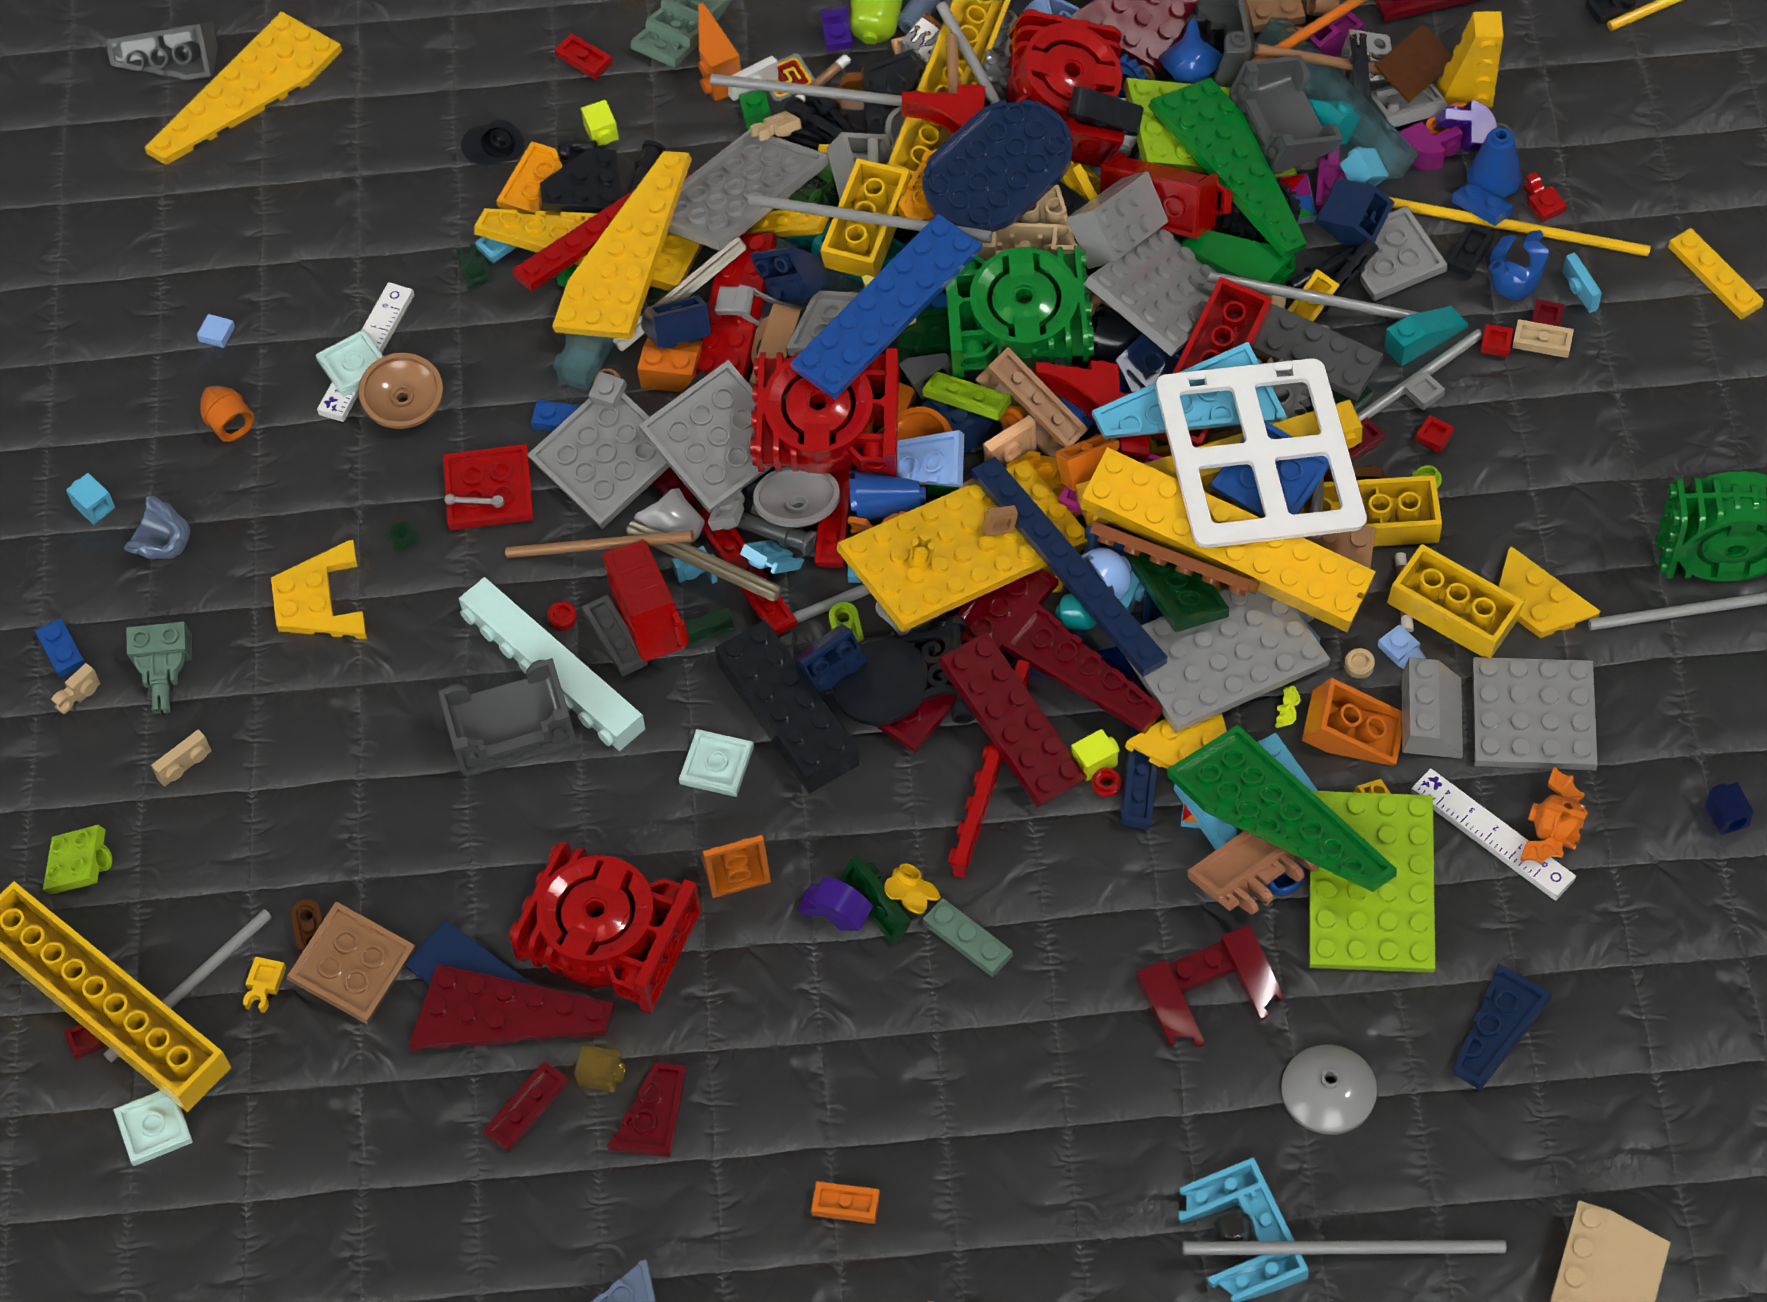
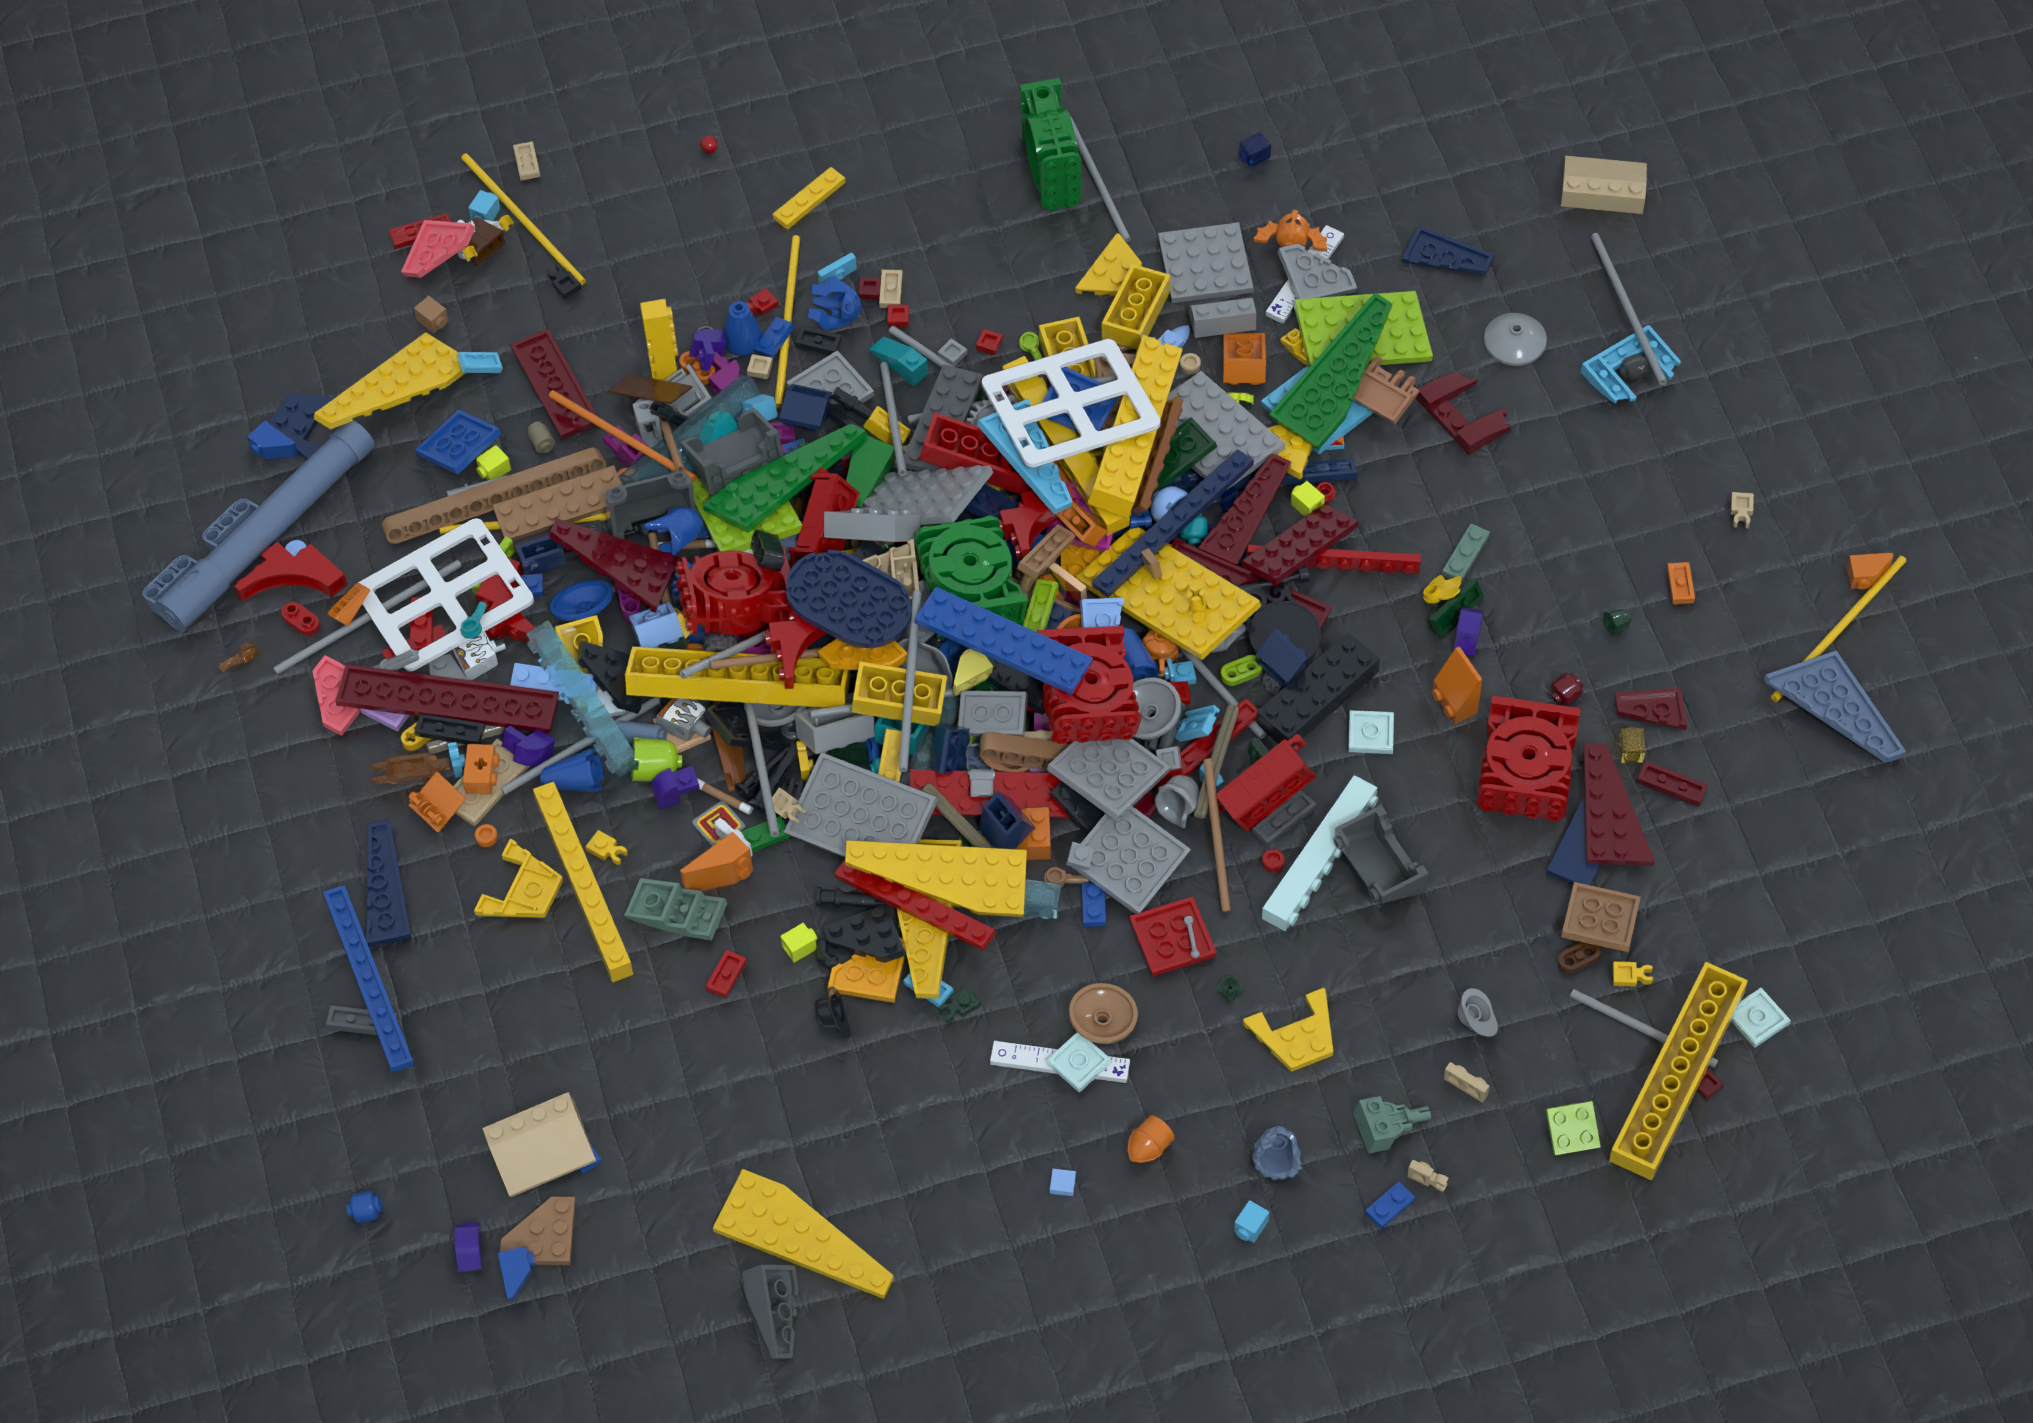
camera: 105 degrees left, 0 degrees up
(260, 784) = (1477, 1013): none -> light grey piece
(709, 1007) = (1566, 688): none -> dark red head
(803, 1099) = (1616, 620): none -> clear green hat
(1439, 184) = (759, 366): none -> tan plate
(1478, 834) = (1314, 275): none -> light grey plate

